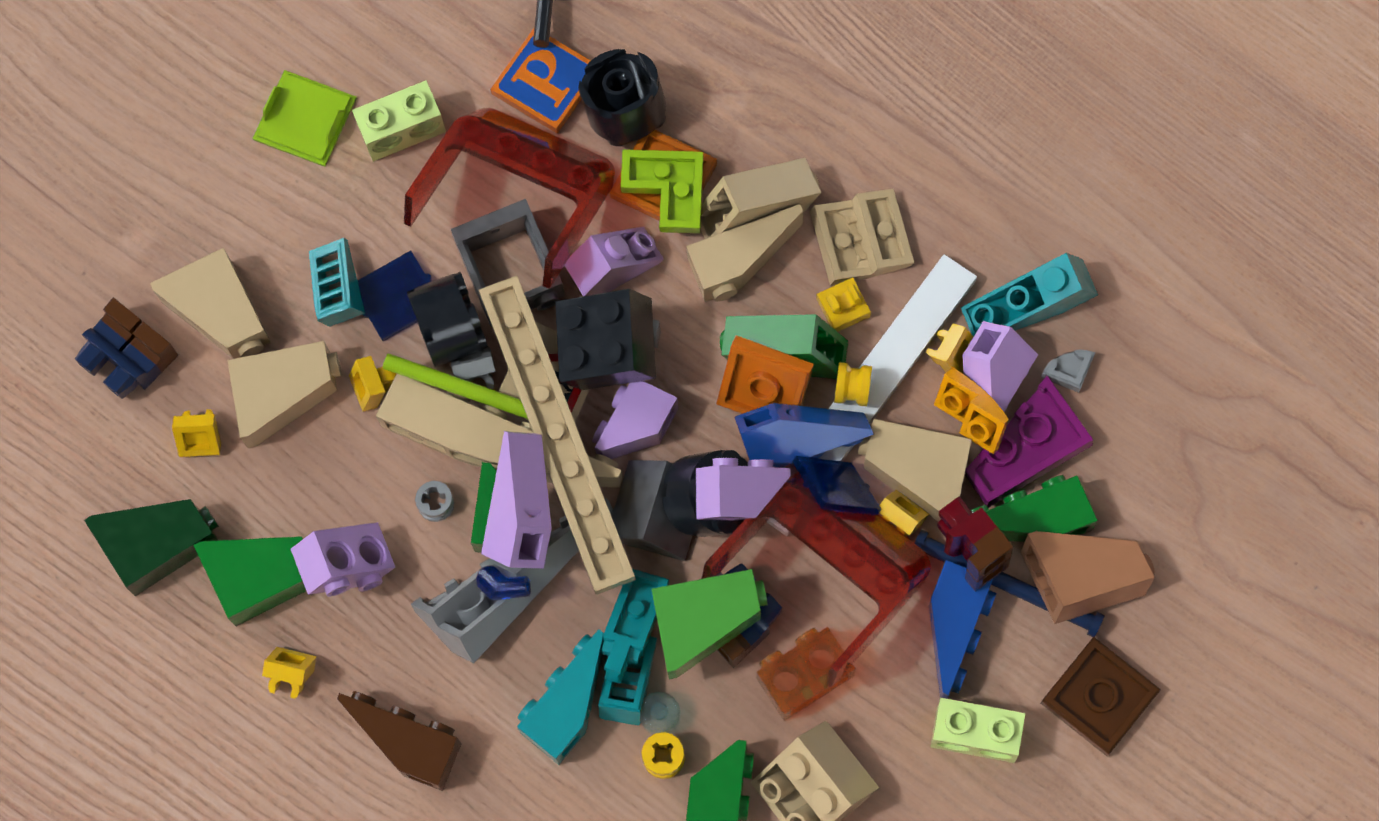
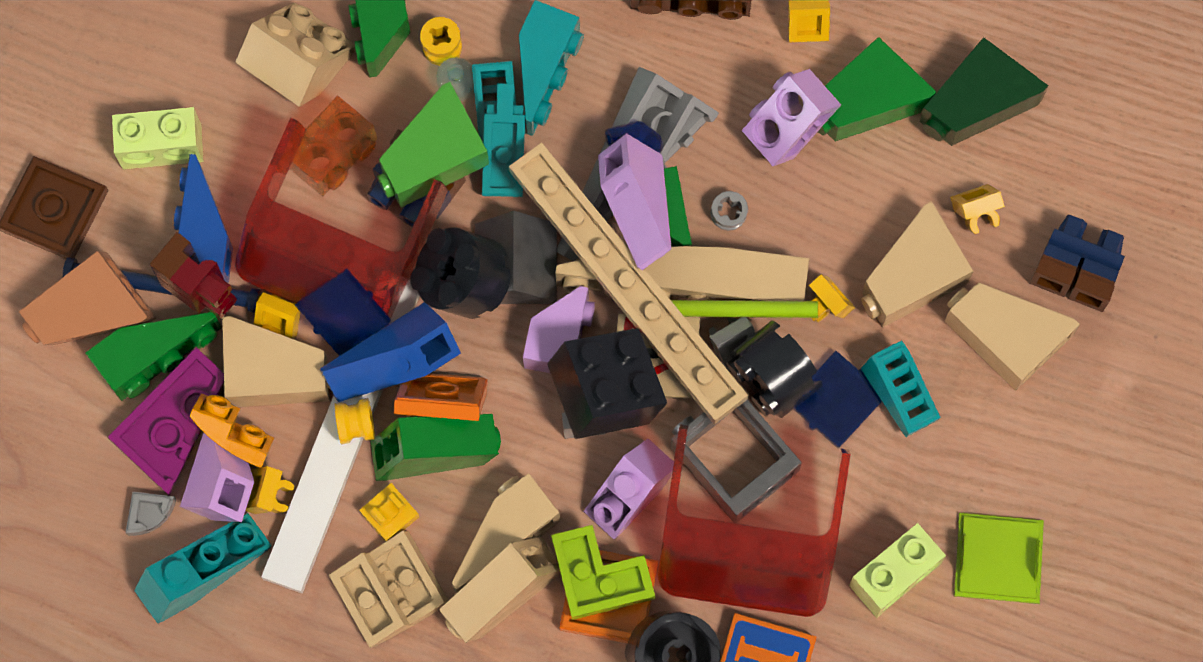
camera: 160 degrees right, 0 degrees up
(736, 491) = (430, 259): lavender slope -> none

